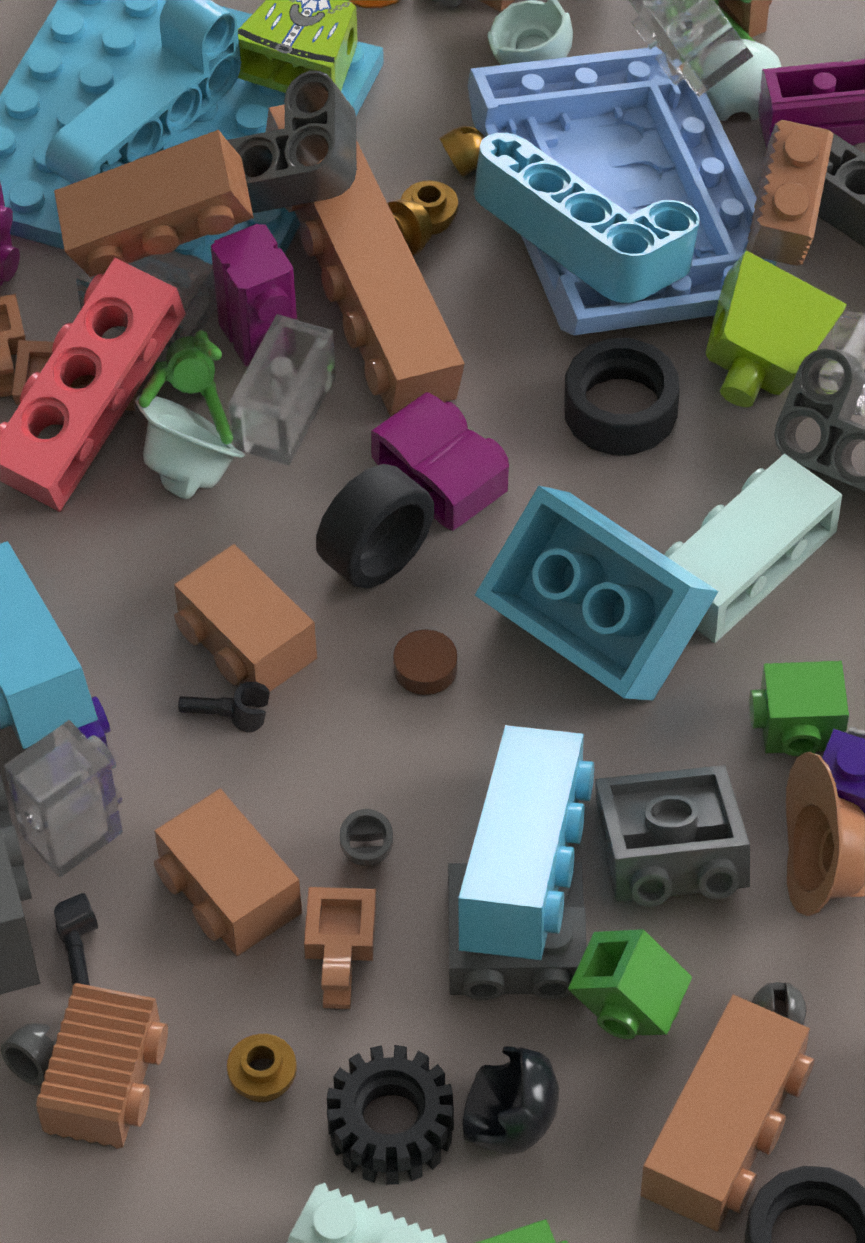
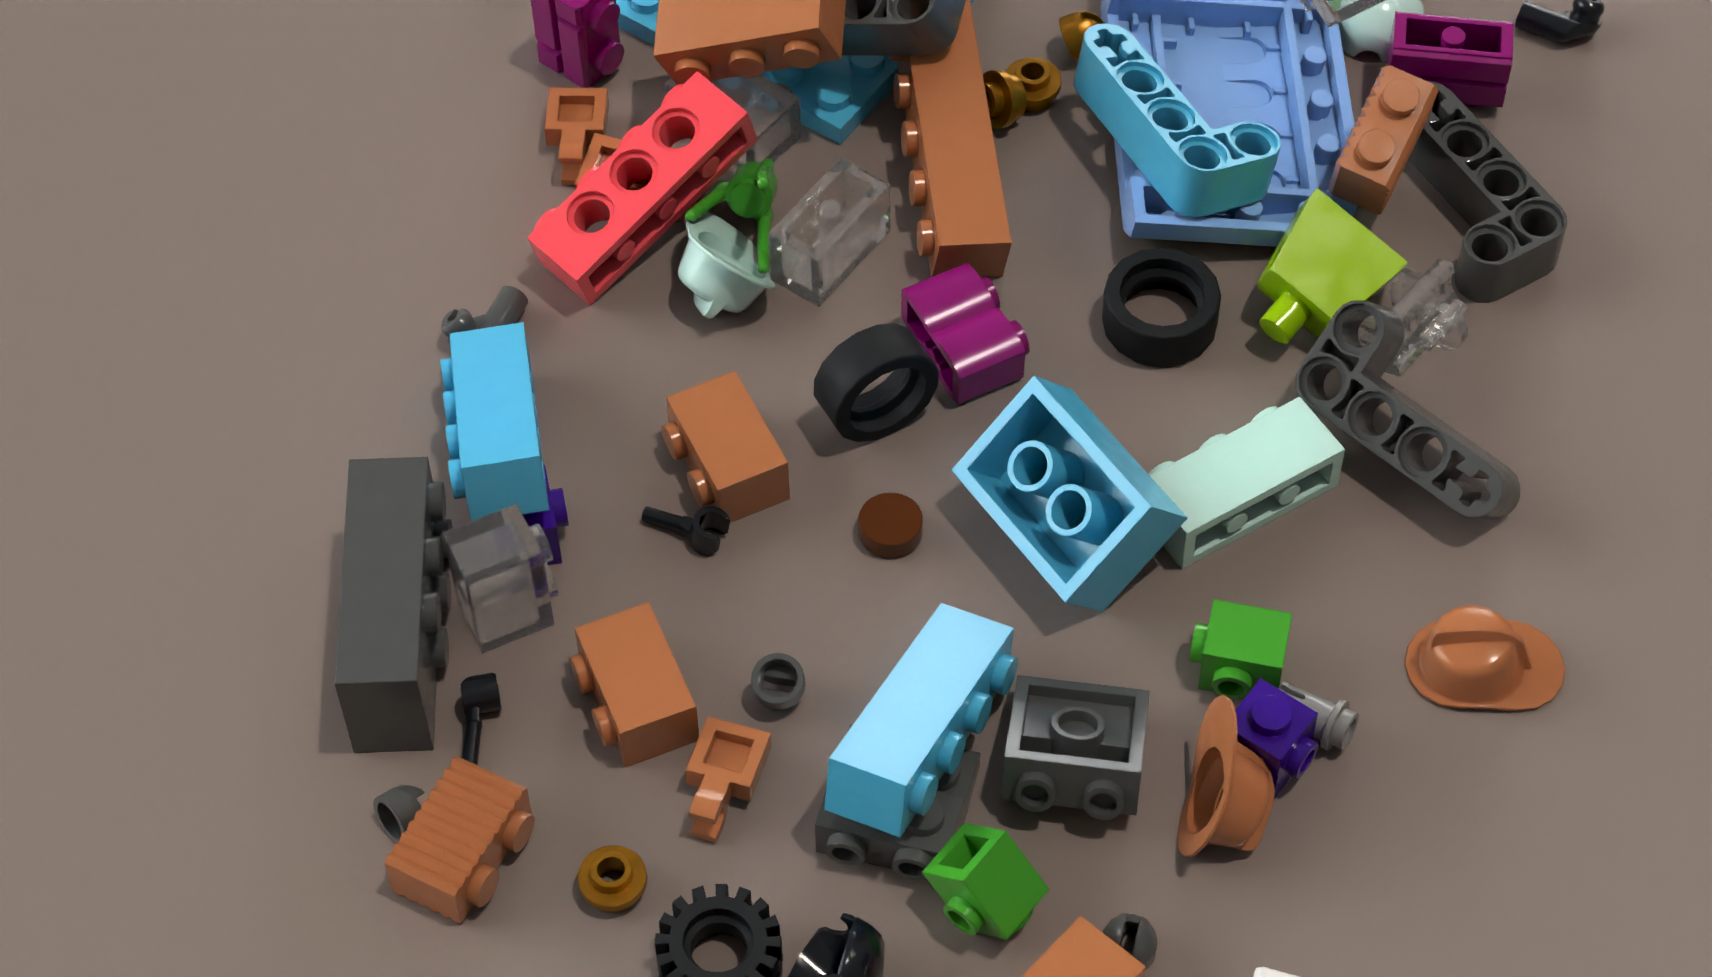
camera: 15 degrees right, 0 degrees up
(251, 287) = (827, 122): magenta brick -> none

